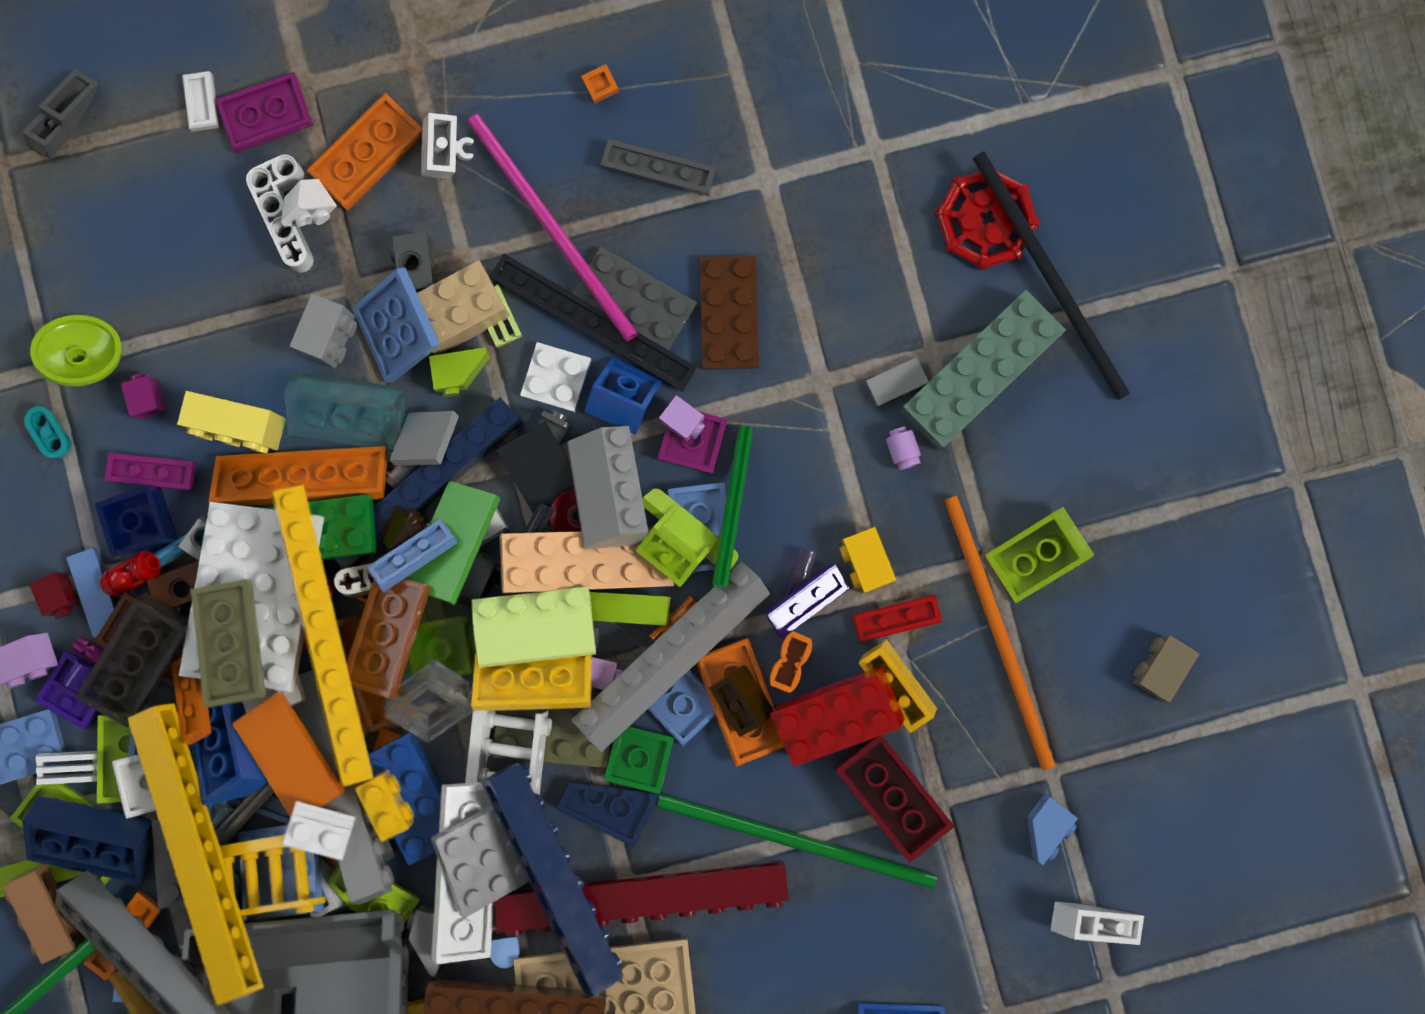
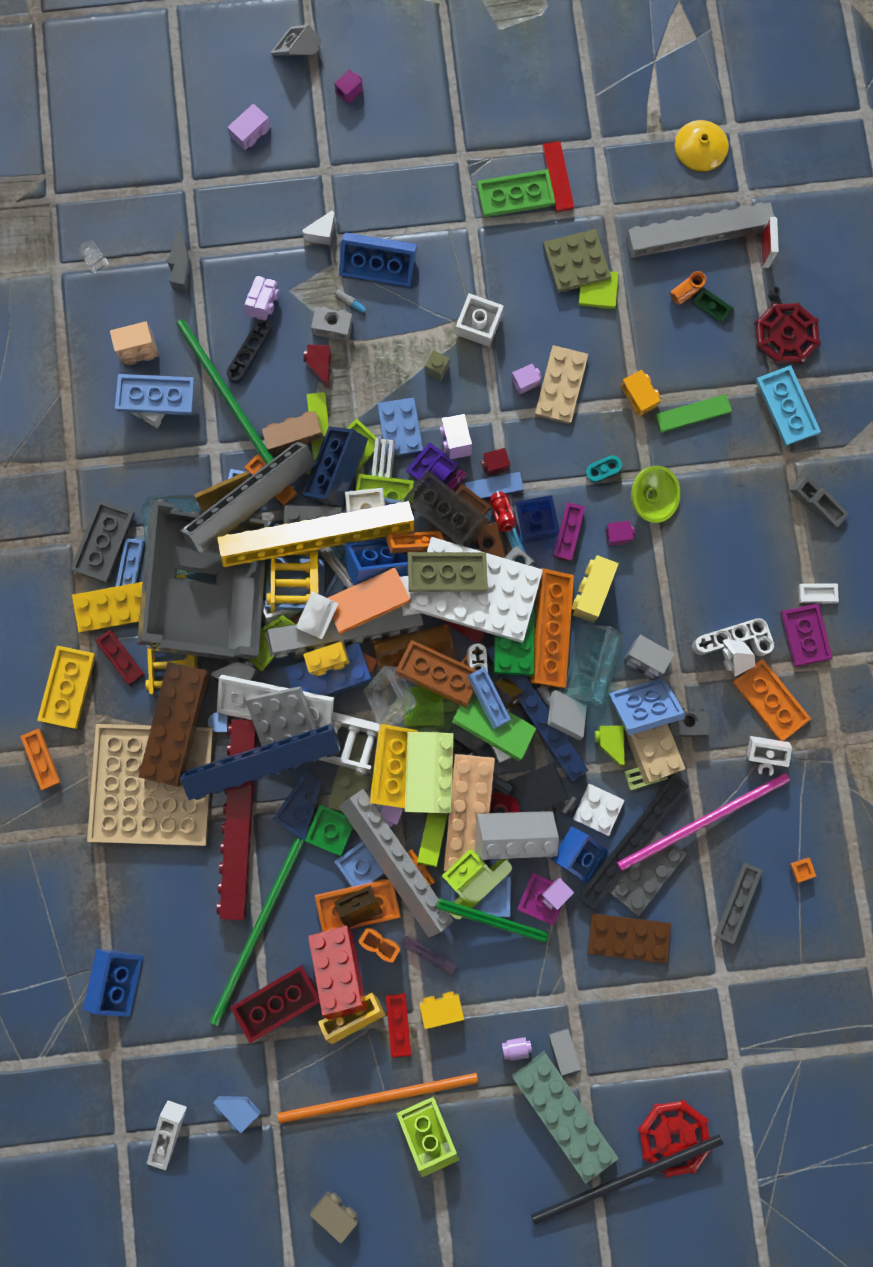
camera: 95 degrees right, 5 degrees down
(322, 635) = (443, 633): yellow brick -> none
(806, 600) = (420, 962): tile -> none

